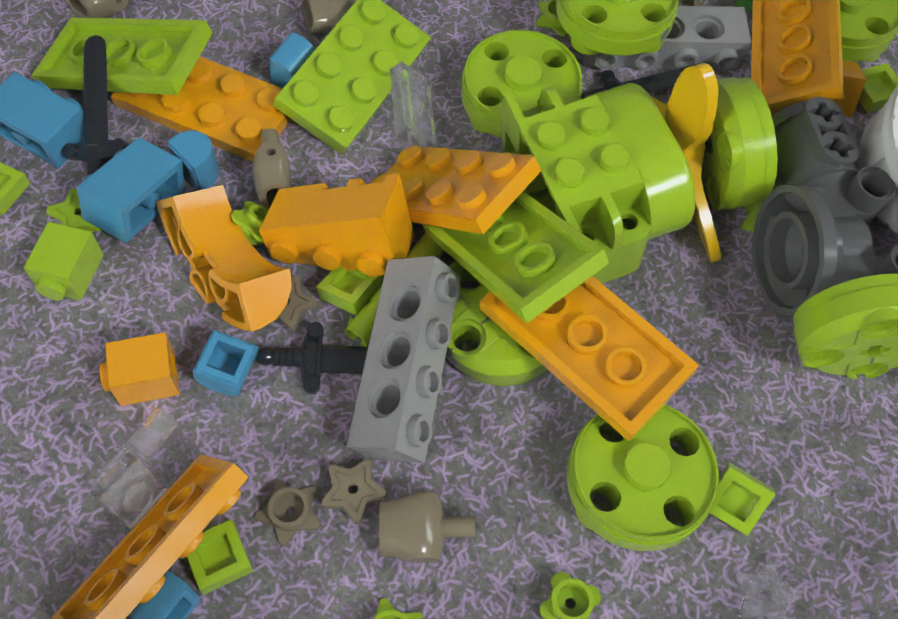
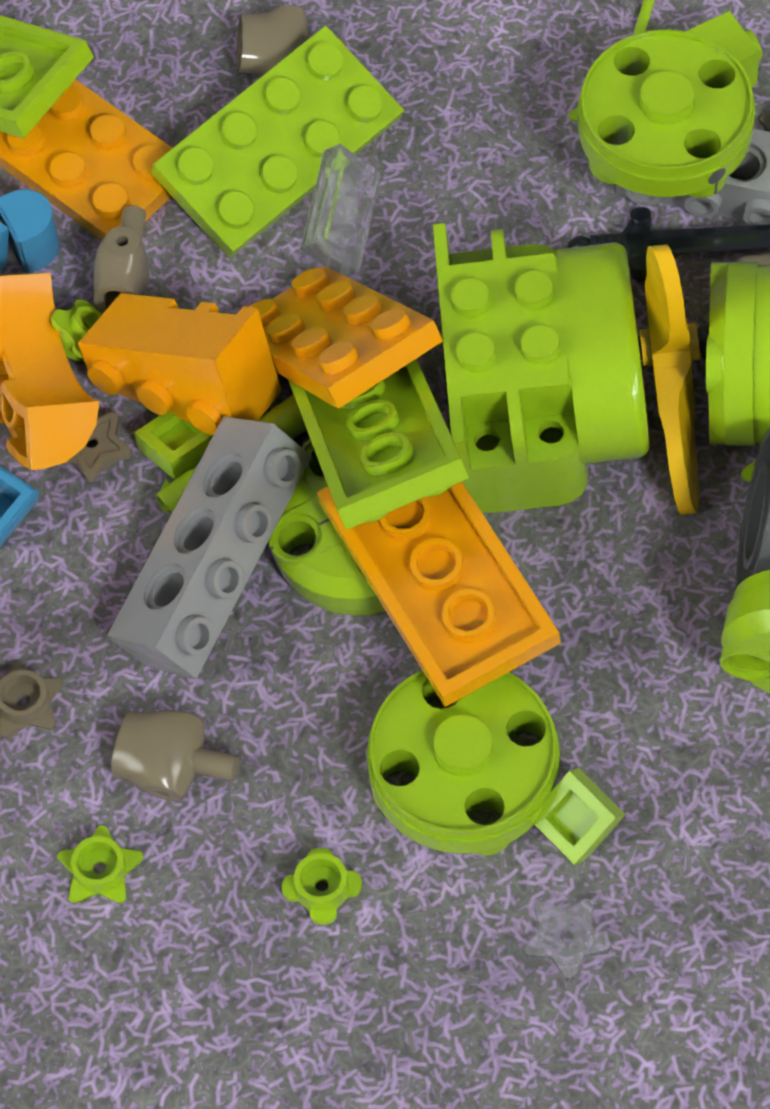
camera: 25 degrees right, 0 degrees up
(289, 59) = (192, 107): dark azure brick -> none
(315, 358) = (110, 523): black sword -> none
(352, 504) = (108, 708): dark tan plate -> none
(520, 63) = (504, 194): lime piece -> none

